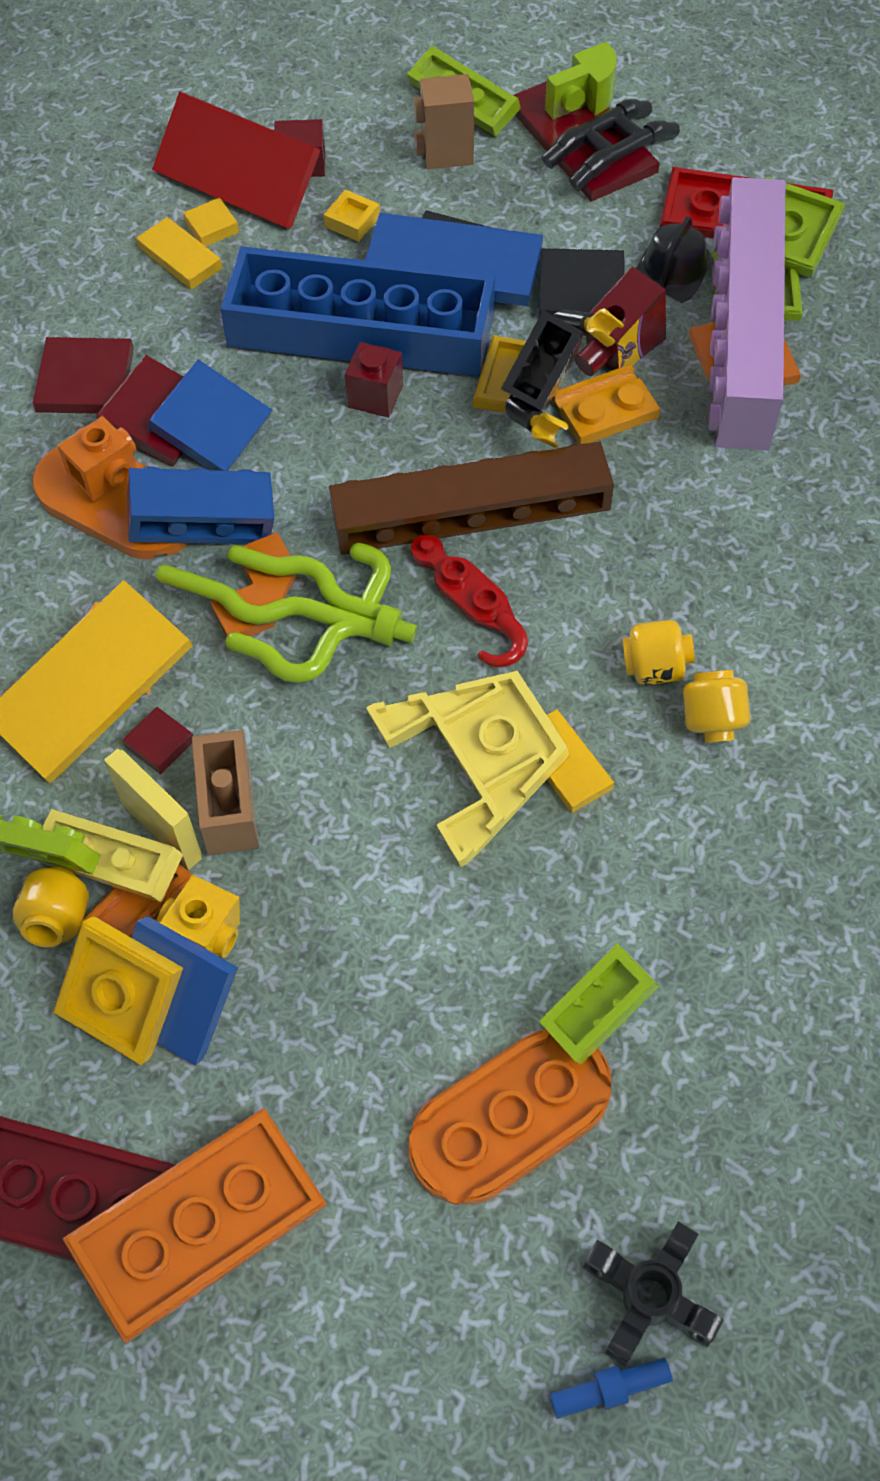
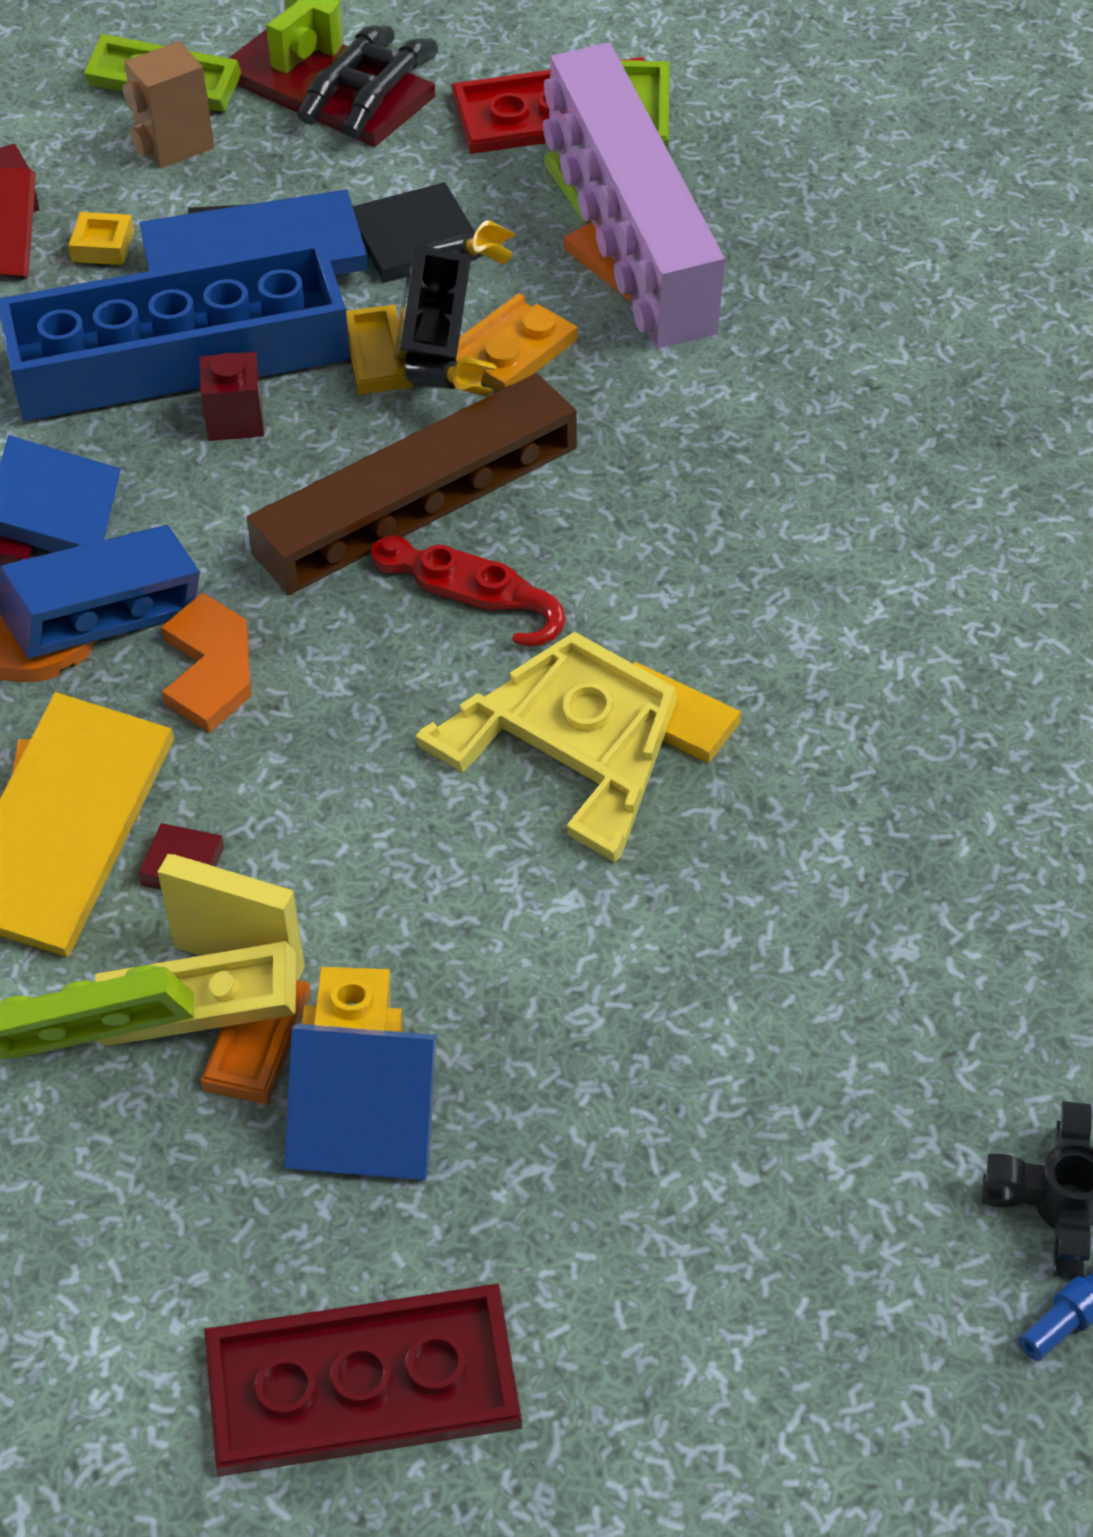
camera: 25 degrees left, 10 degrees down
(50, 906) = (155, 1077): yellow head -> none
(117, 990) = (295, 1126): yellow tile -> none
(193, 1225) = (524, 1338): orange tile -> none
(225, 792) = (296, 852): medium nougat brick -> none
(345, 614) = (335, 647): lime plant -> none
(506, 1119) = (815, 1088): orange tile -> none
(599, 1004) = (858, 922): lime tile -> none
(642, 310) = (488, 281): dark red torso -> none
(658, 652) = (716, 565): yellow head -> none
(677, 259) = (507, 176): black piece -> none
(716, 705) = (810, 593): yellow head -> none

